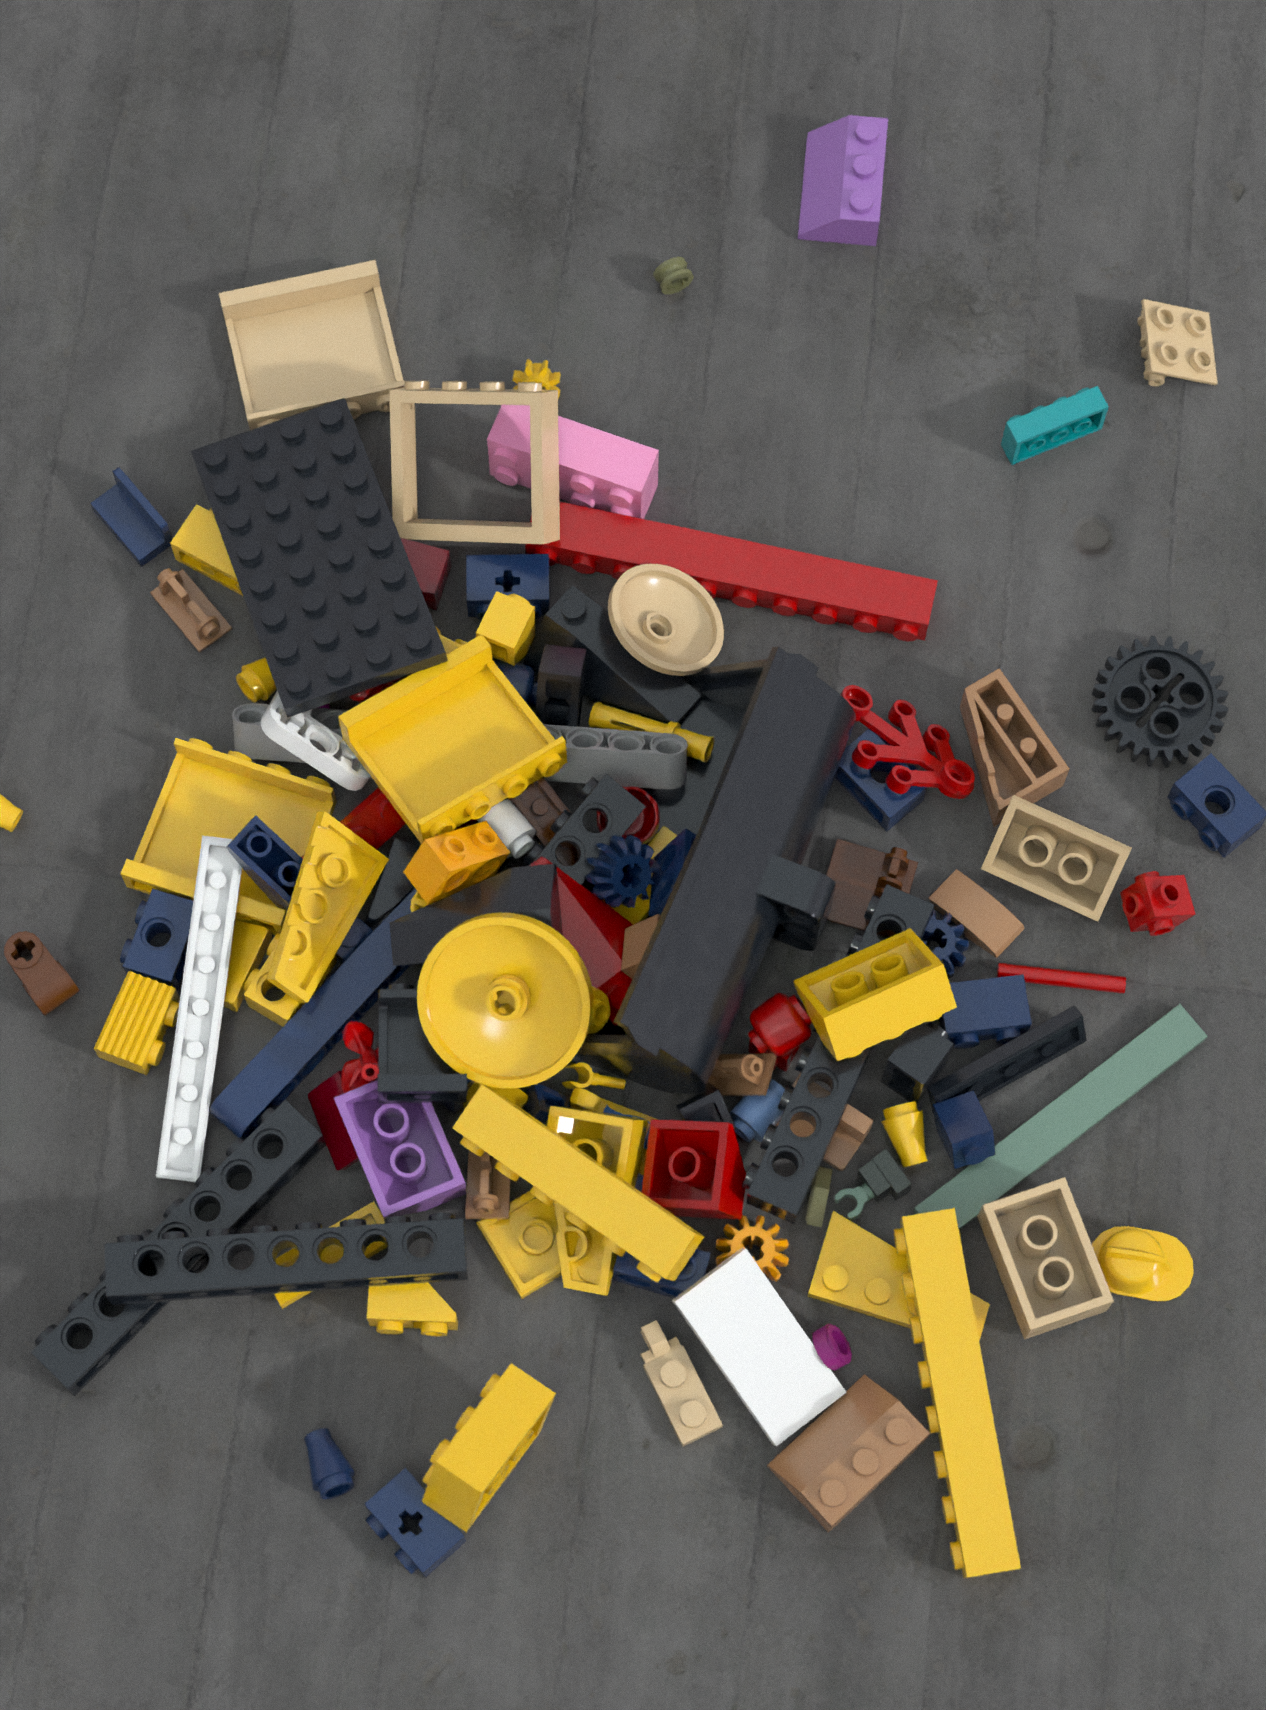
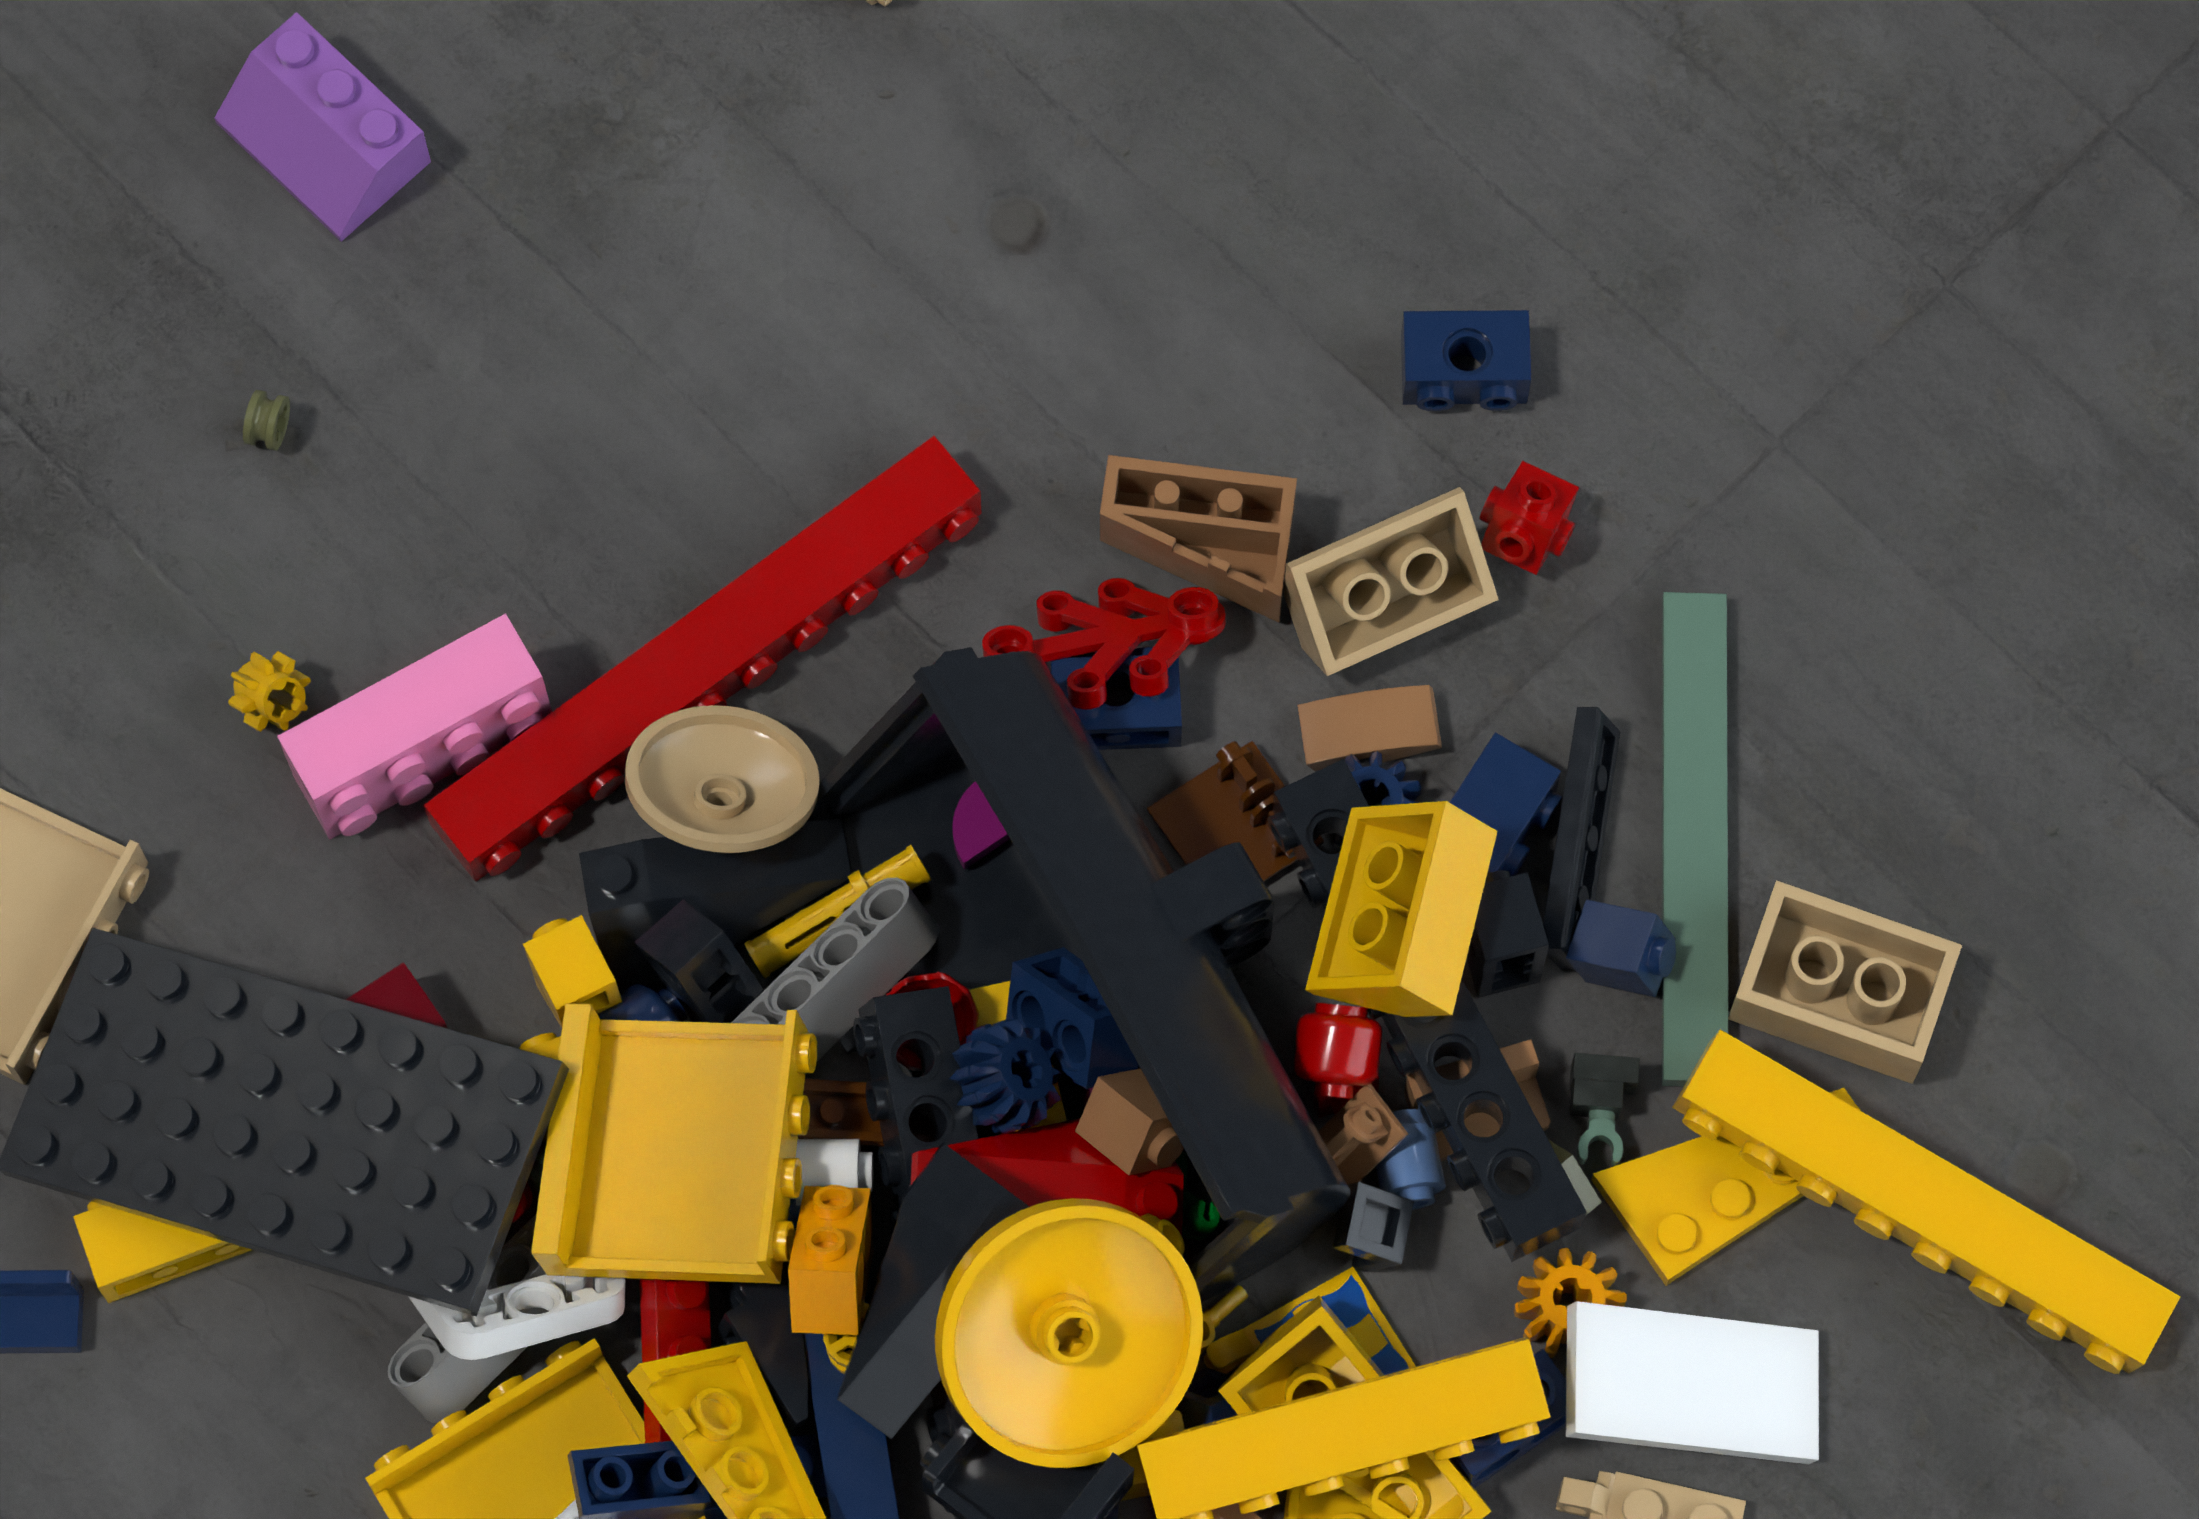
camera: 50 degrees left, 0 degrees up
(189, 609) = (196, 1334): medium nougat hinge -> none
(256, 680) = (365, 1319): yellow cone -> none
(491, 573) = (507, 898): dark blue brick -> none
(544, 463) = (408, 909): tan window -> none
(694, 1169) = (1426, 1286): red slope -> none
(832, 1346) = (1754, 1302): magenta tile -> none
(848, 1451) = (1891, 1383): medium nougat slope -> none
(906, 1131) = (1567, 1016): yellow cone -> none
(1054, 424) = (848, 150): teal piece -> none
(1064, 978) = (1523, 696): red bar -> none
(1129, 679) = (1231, 324): black gear -> none
(1143, 1263) = (1930, 878): yellow piece -> none

